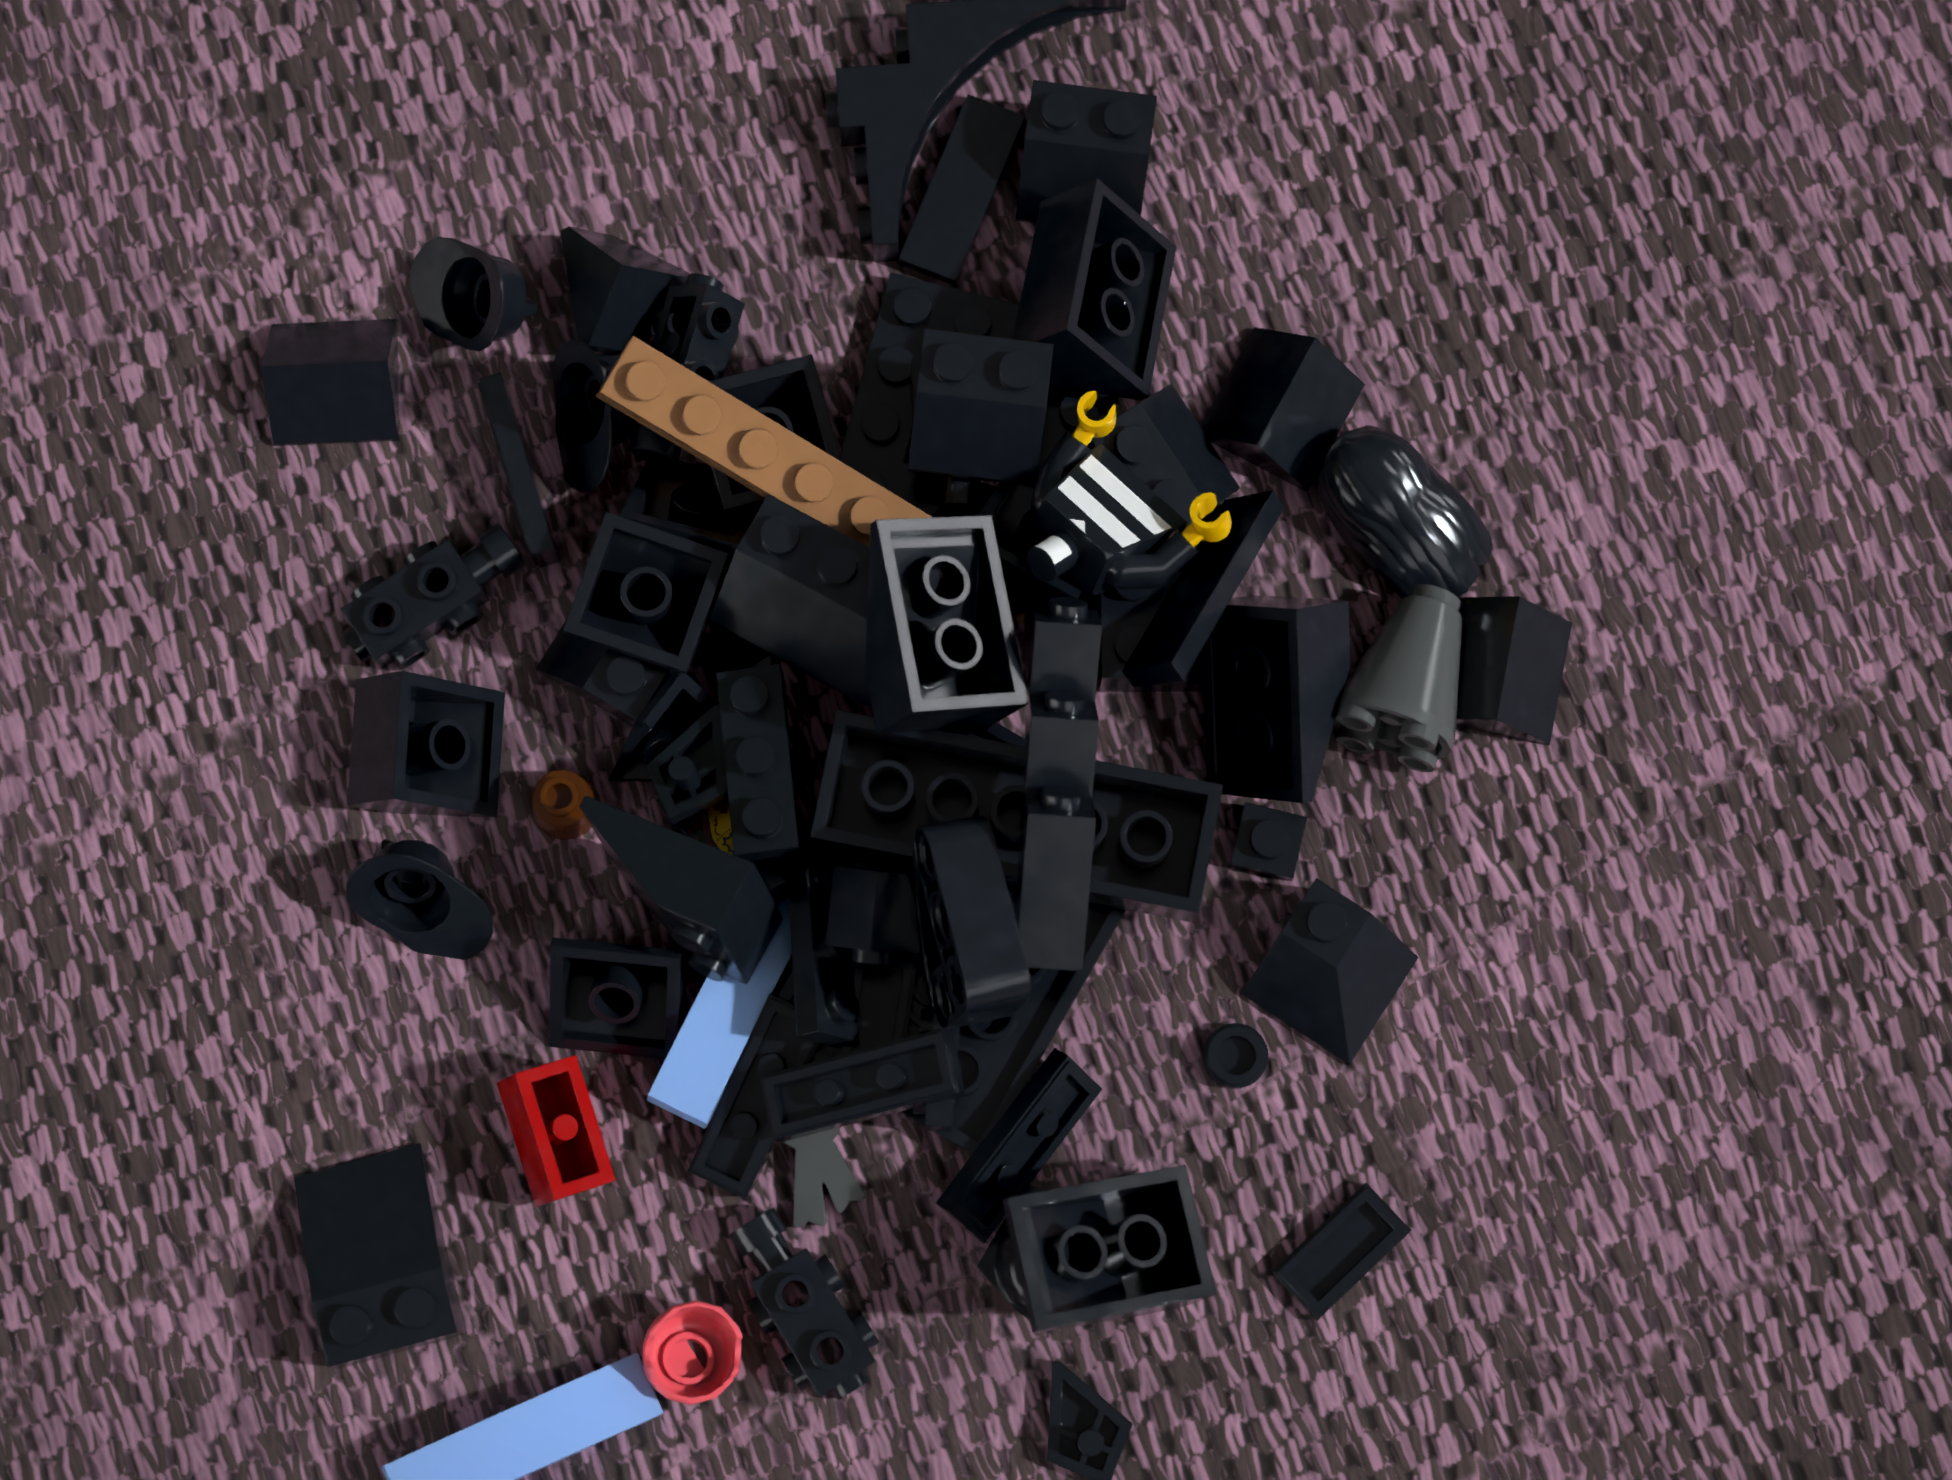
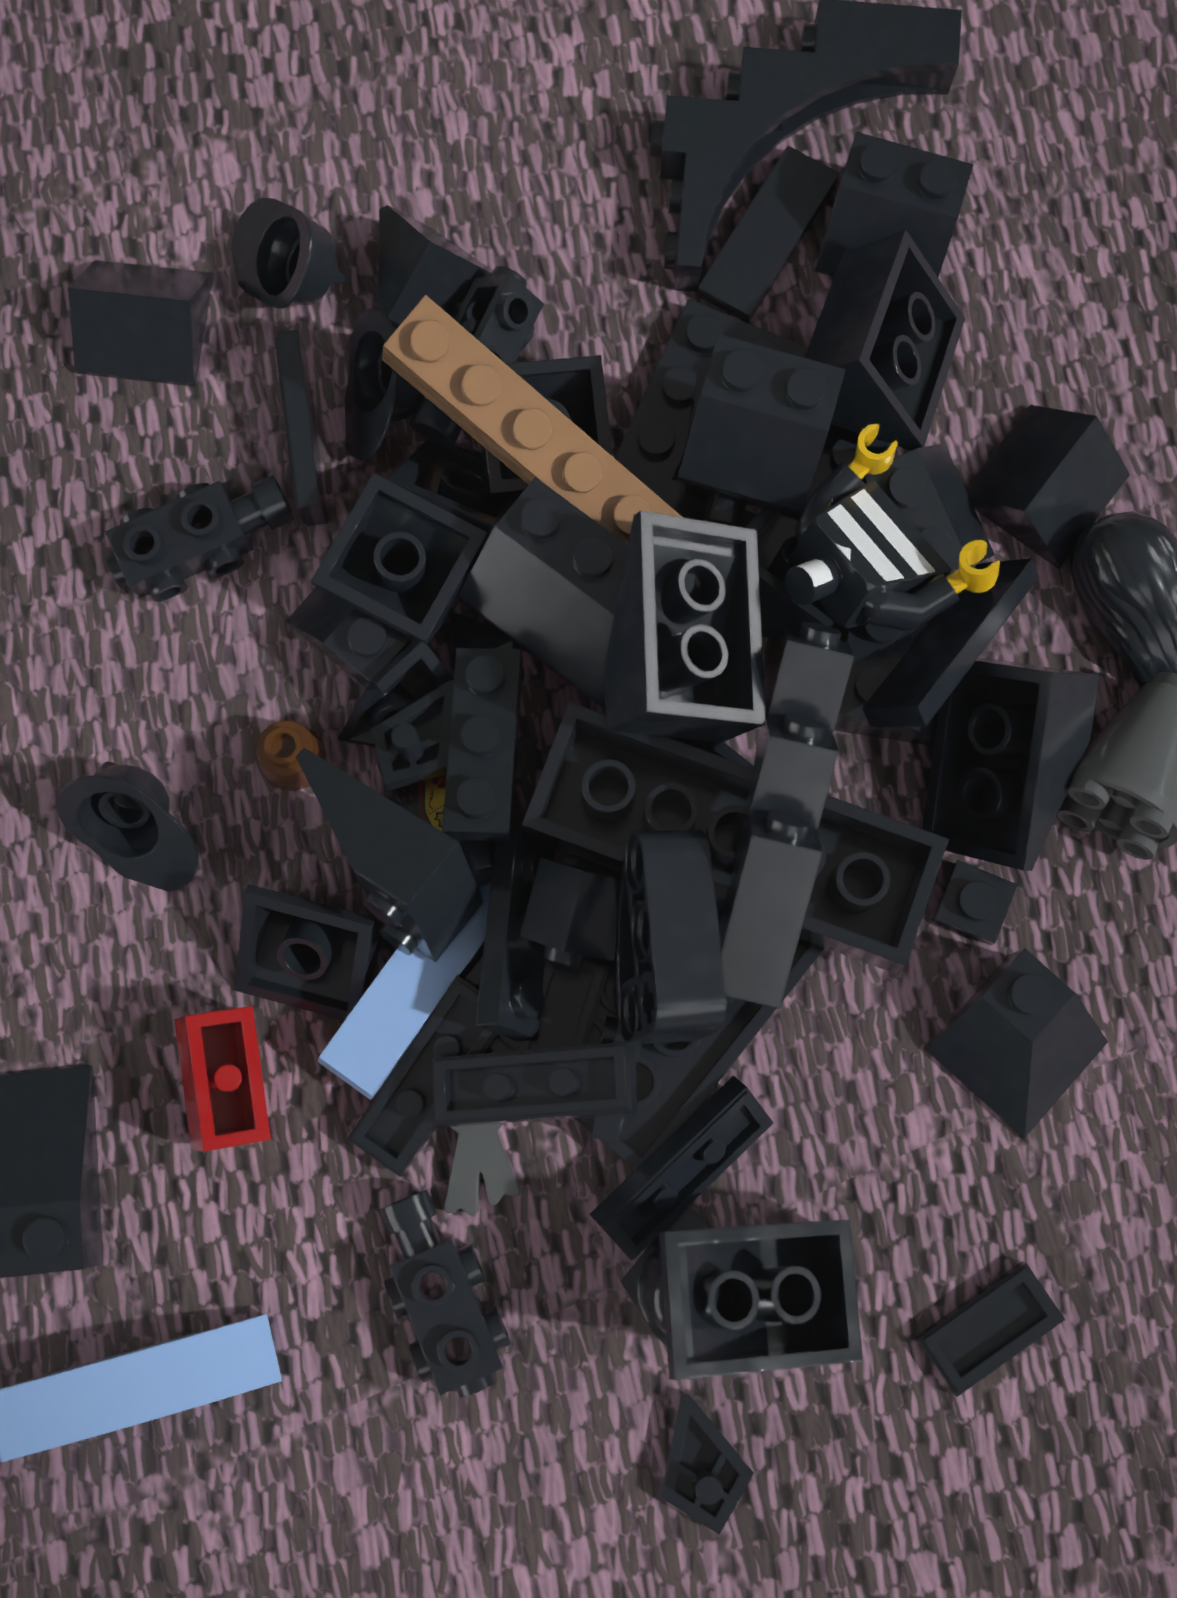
camera: 10 degrees right, 0 degrees up
(425, 746) = (164, 677): black slope -> none
(672, 1363) = (300, 1333): coral hair -> none
(1235, 1056) = (911, 1111): black tile -> none

